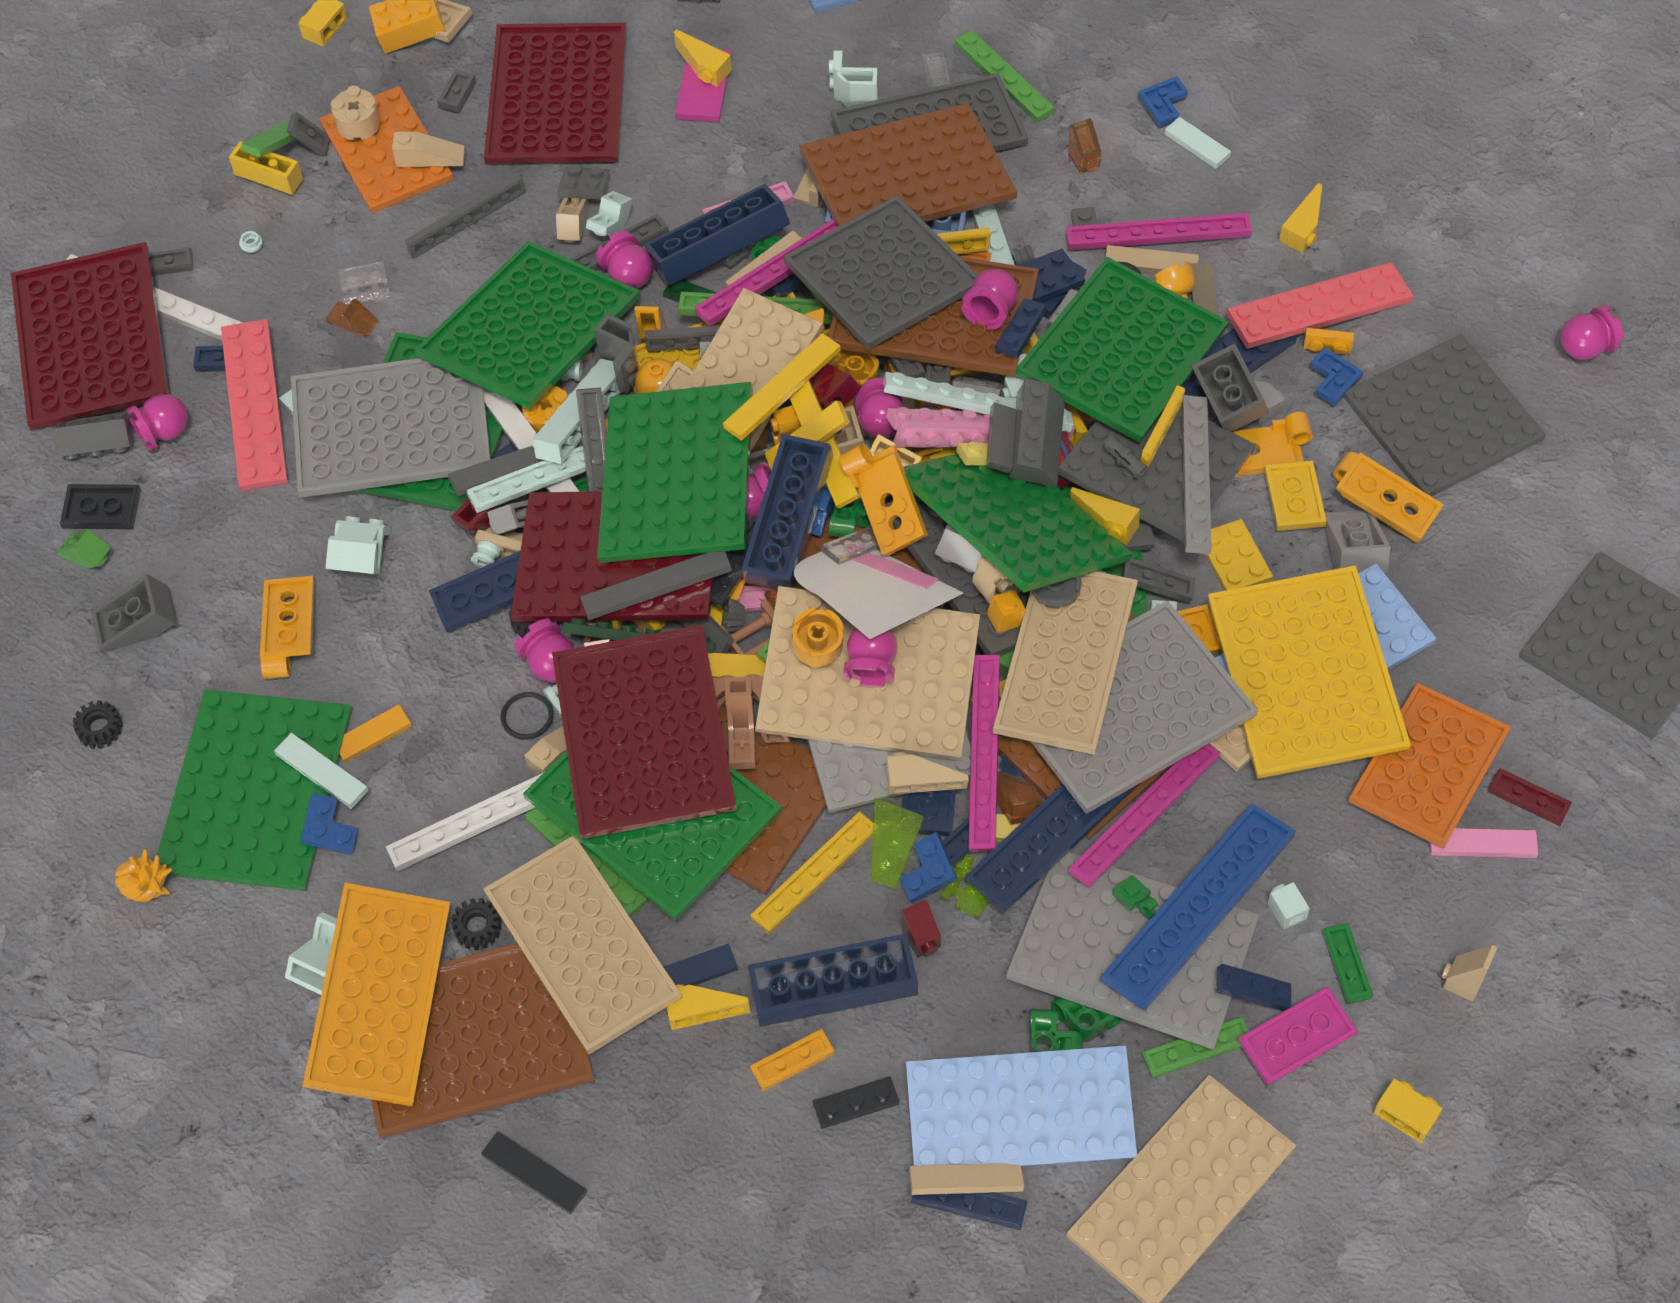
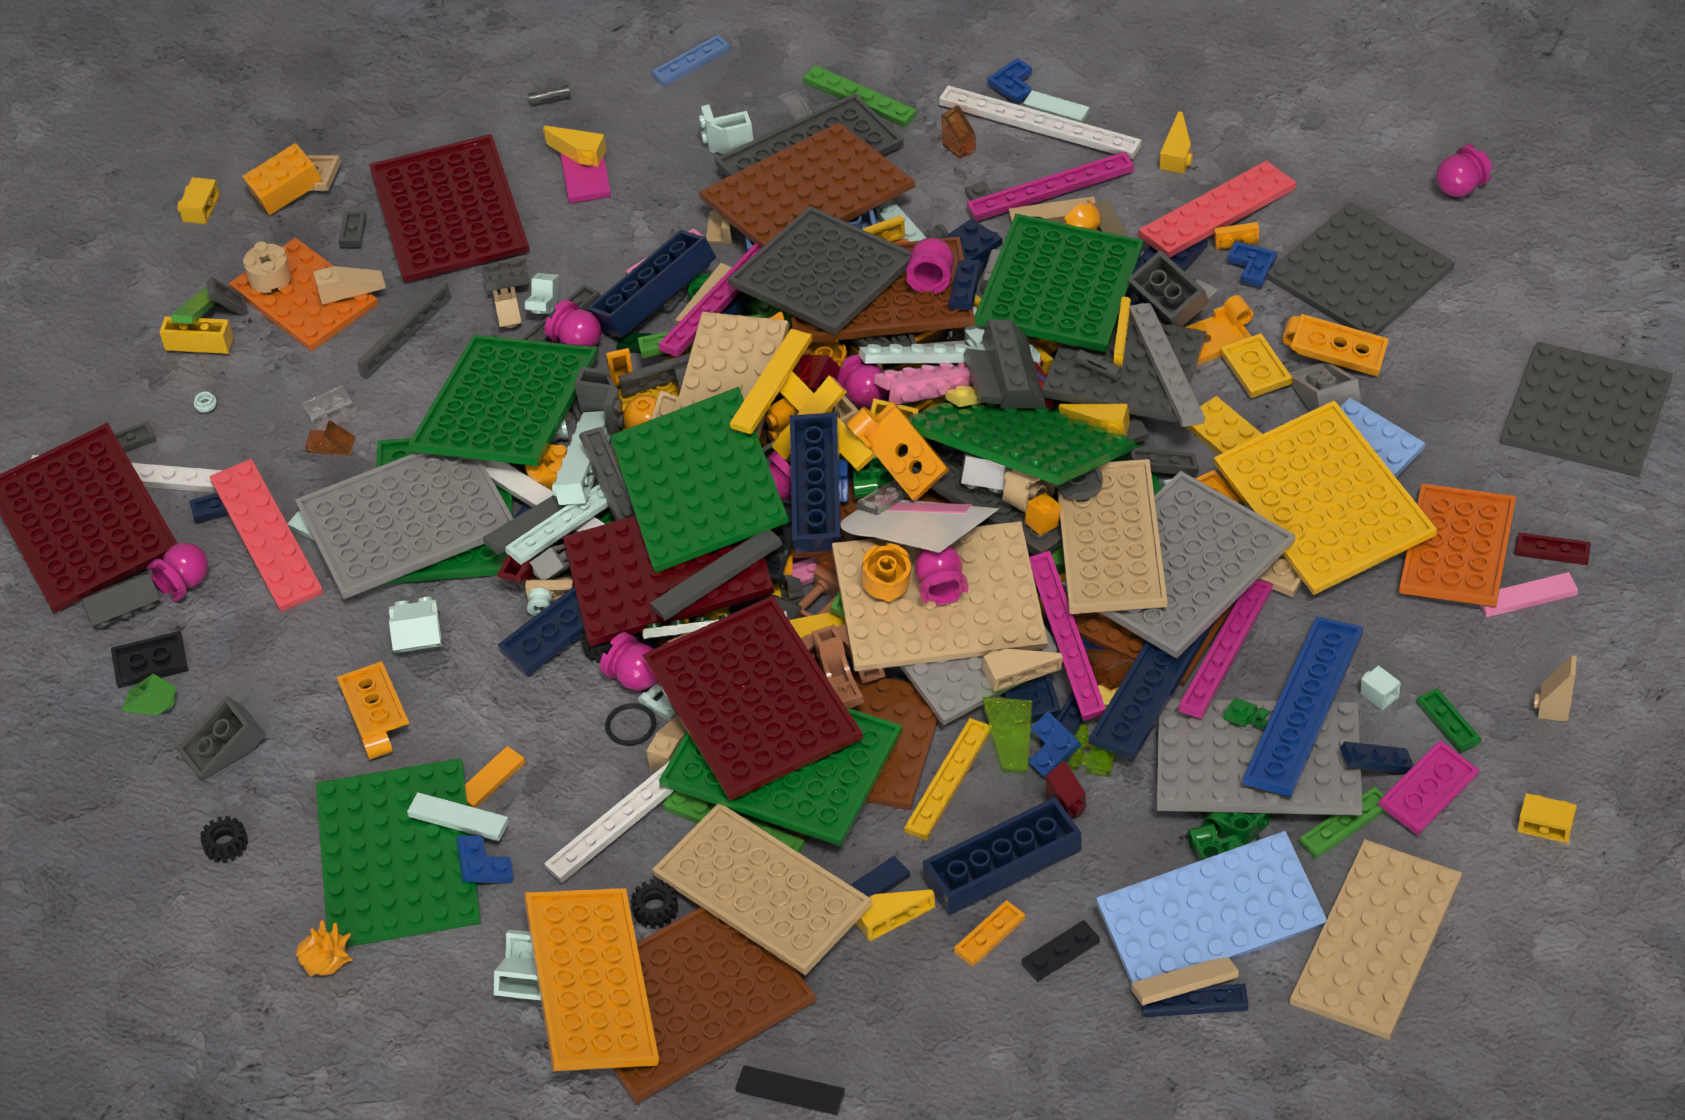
camera: 15 degrees left, 10 degrees down
(1175, 155) = (1040, 122): none -> white plate

